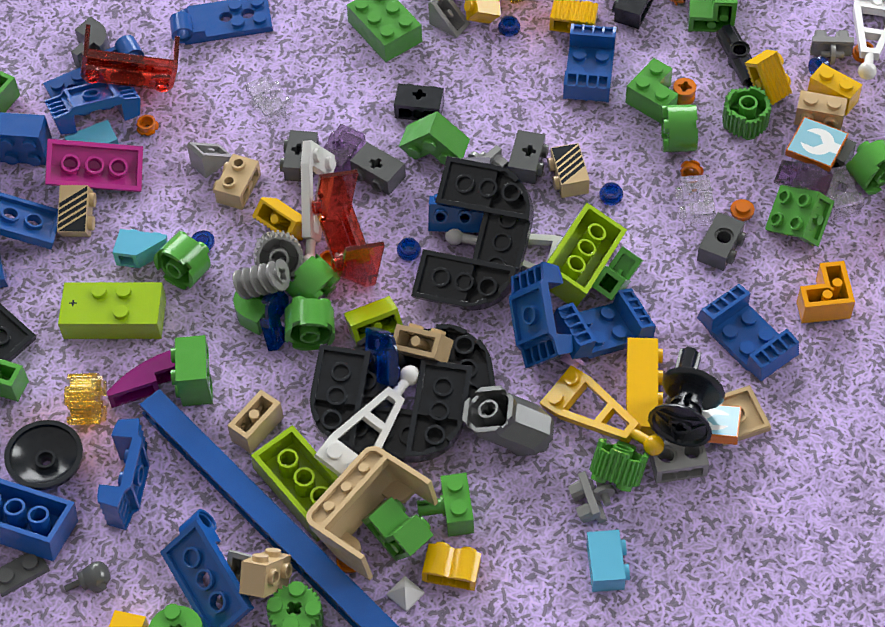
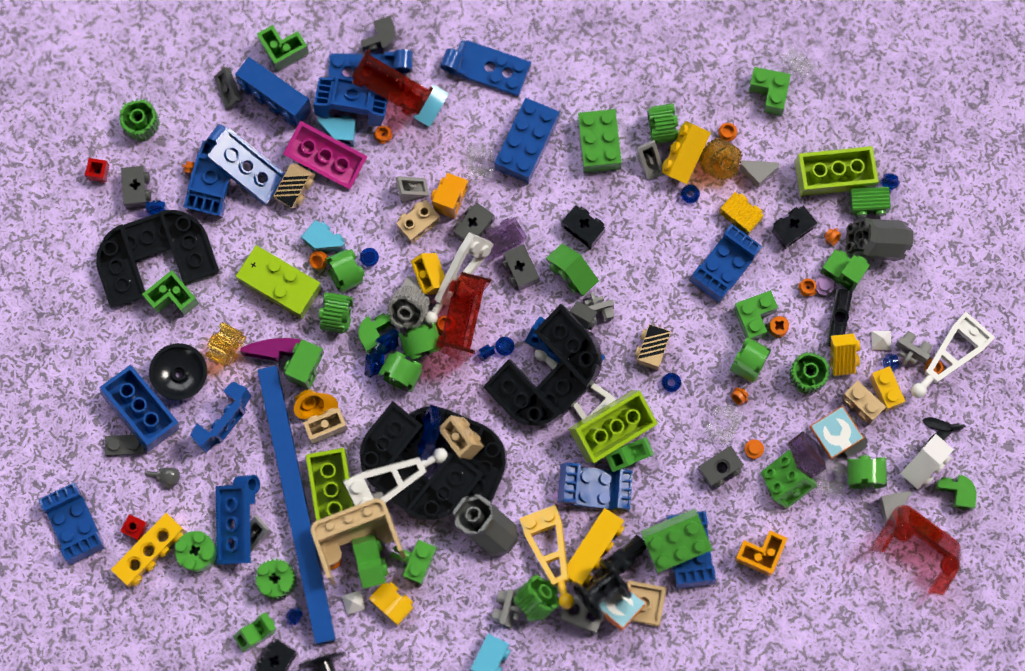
camera: 30 degrees right, 20 degrees up
(145, 270) = (317, 260): none -> orange plate
(185, 77) = (432, 106): none -> medium azure slope
(198, 304) = (336, 313): none -> bright green brick
(225, 405) = (311, 403): none -> light orange piece
(256, 140) = (449, 195): none -> light orange brick
(262, 279) = (383, 325): light grey piece -> none
(265, 573) = (269, 544): tan brick -> none
(308, 57) = (527, 140): none -> blue brick
(378, 314) = (445, 393): lime brick -> none
(392, 263) = (486, 351): none -> clear blue plate
(527, 156) = (634, 308): dark grey brick -> none
(534, 316) = (547, 459): blue plate -> none
(686, 41) = (807, 292): none -> orange plate
(701, 38) = (824, 285): none -> lavender plate
(730, 322) = (676, 540): none -> bright green brick
(794, 57) = (881, 340): none -> white slope

